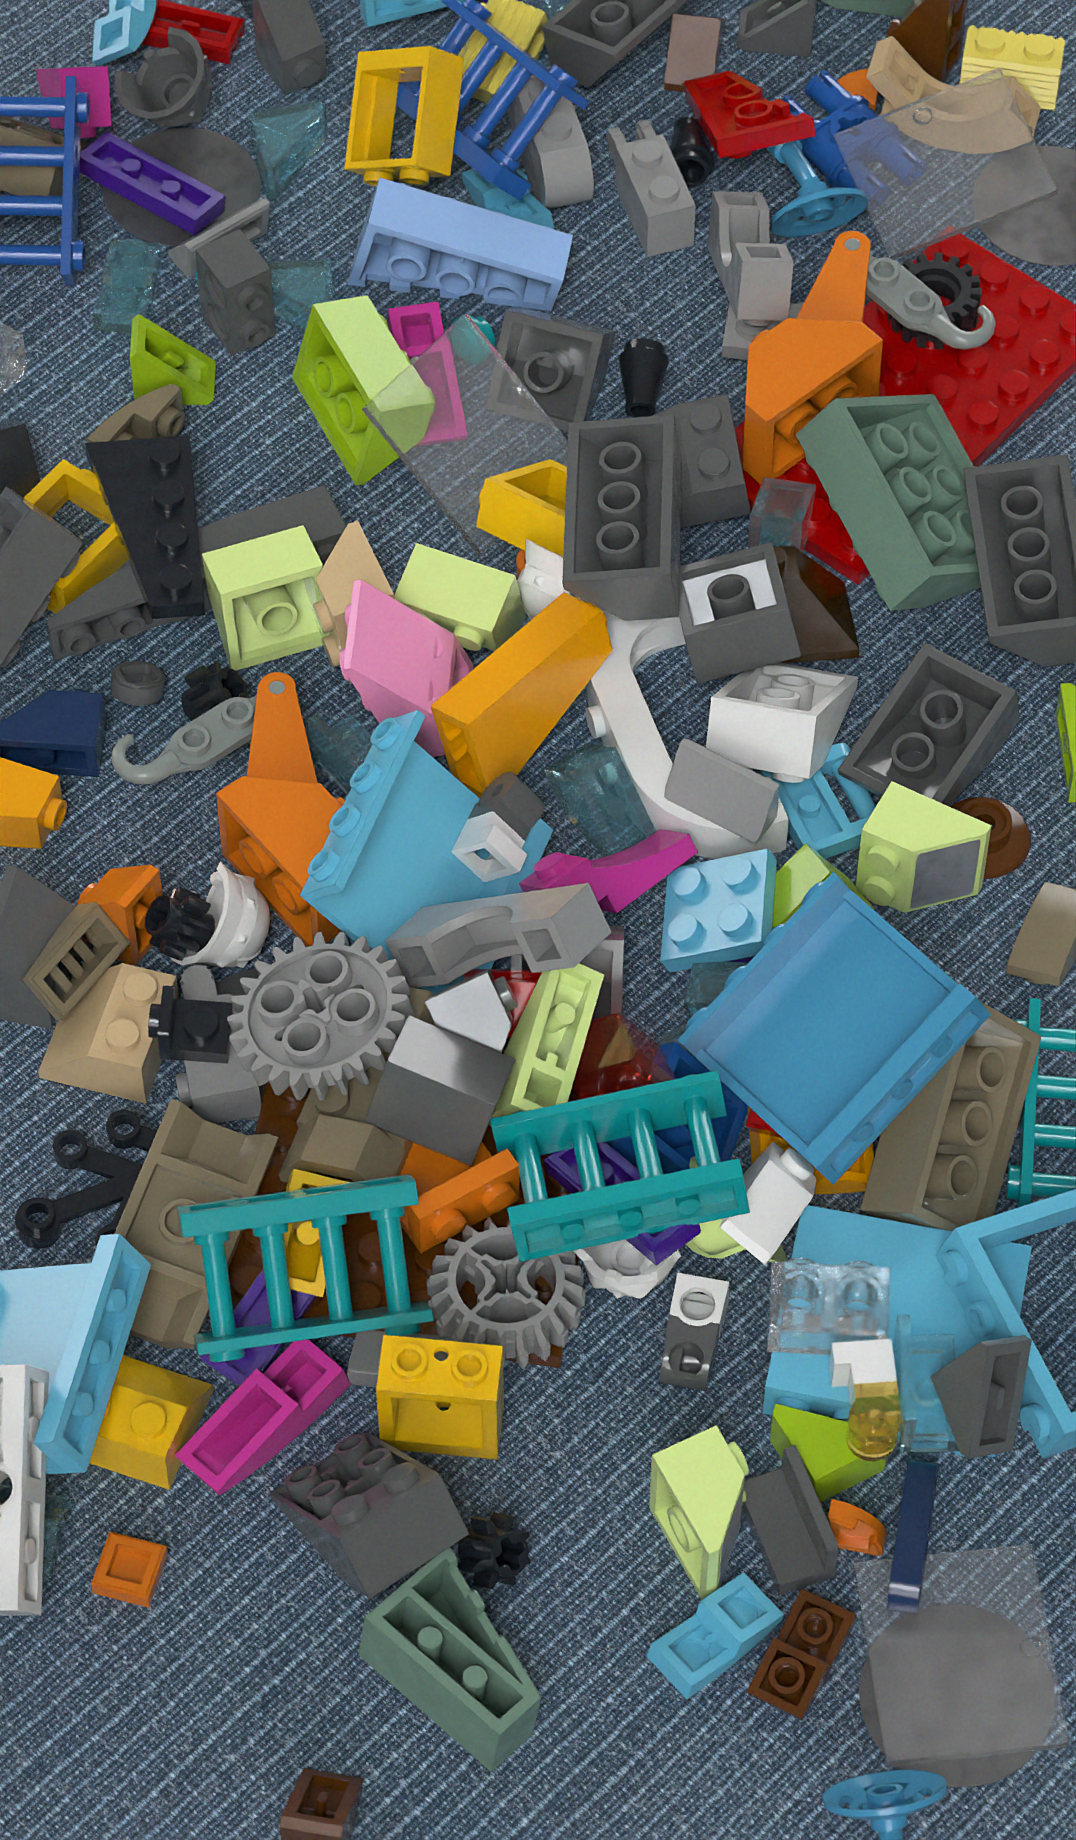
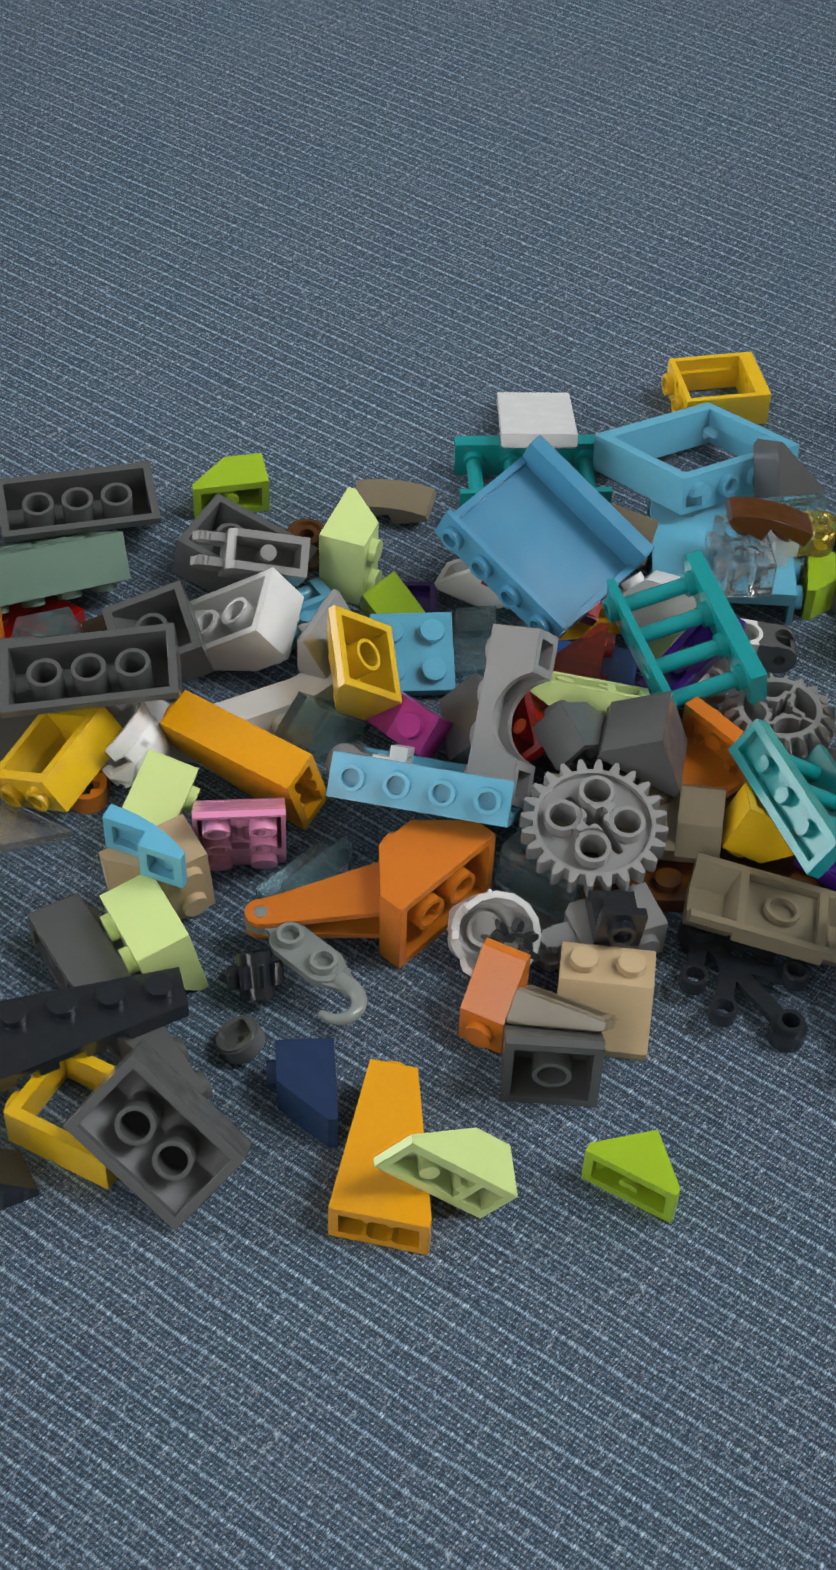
camera: 100 degrees left, 10 degrees down
(327, 553) = (157, 852): none -> medium azure slope
(641, 798) = (361, 664): none -> yellow slope
(846, 1314) = (759, 516): none -> reddish brown slope
(864, 714) = (253, 551): none -> light grey hinge

